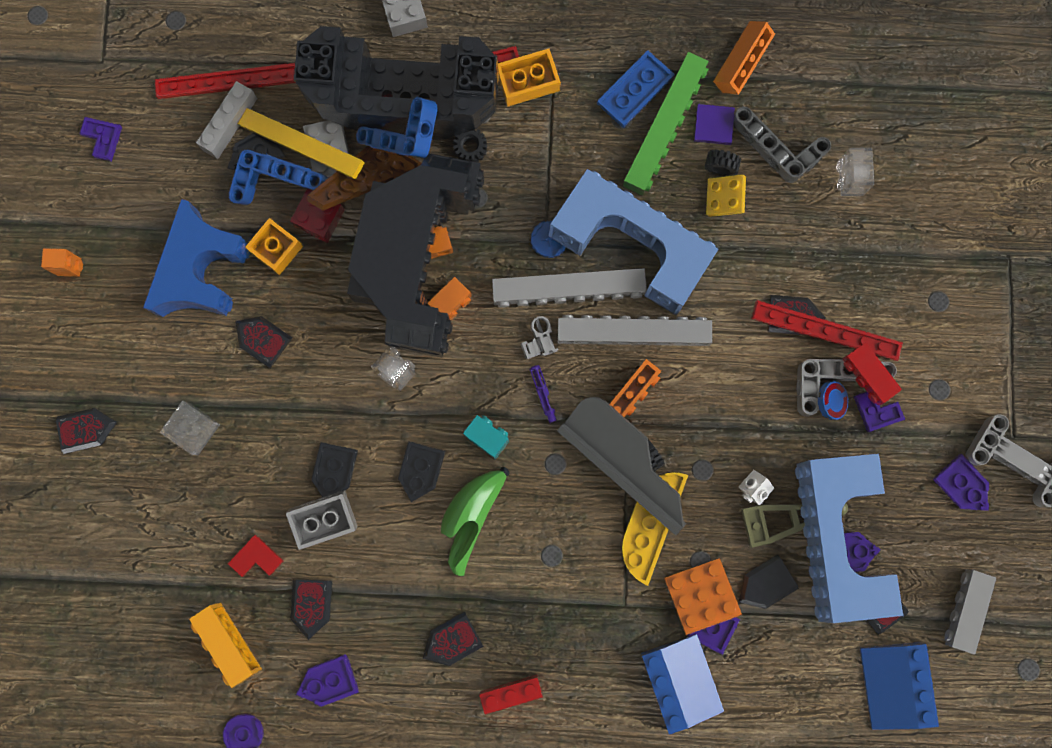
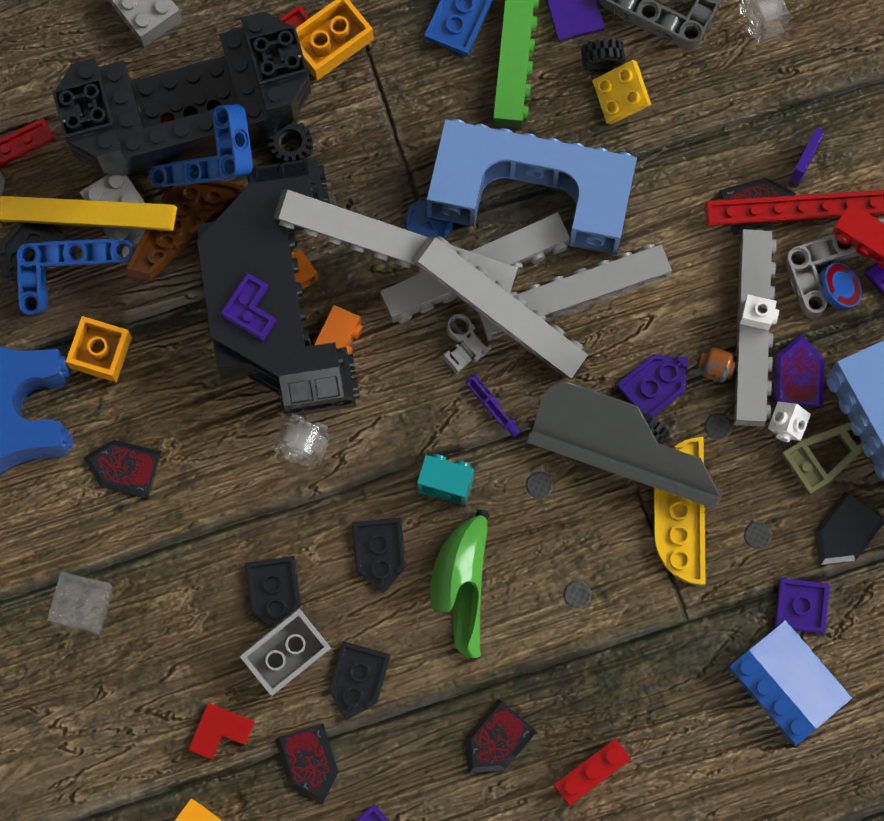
camera: 20 degrees left, 5 degrees down
(314, 220) = (135, 297): dark red brick -> none
(369, 557) = (358, 678): none -> black tile
(378, 259) = (243, 309): none -> dark purple tile
(511, 247) = (370, 234): none -> light grey brick
(573, 324) = (500, 307): none -> light grey brick
(636, 388) = (602, 356): orange brick -> none
(667, 421) = (655, 383): none -> dark purple tile
(702, 596) = (775, 573): orange plate -> none
(719, 425) = (717, 365): none -> dark orange head
(756, 407) = (754, 343): none -> light grey brick
(765, 399) = (759, 312): none -> white brick
(776, 454) = (799, 374): none -> dark purple tile
(844, 295) = (806, 157): none -> dark purple tile

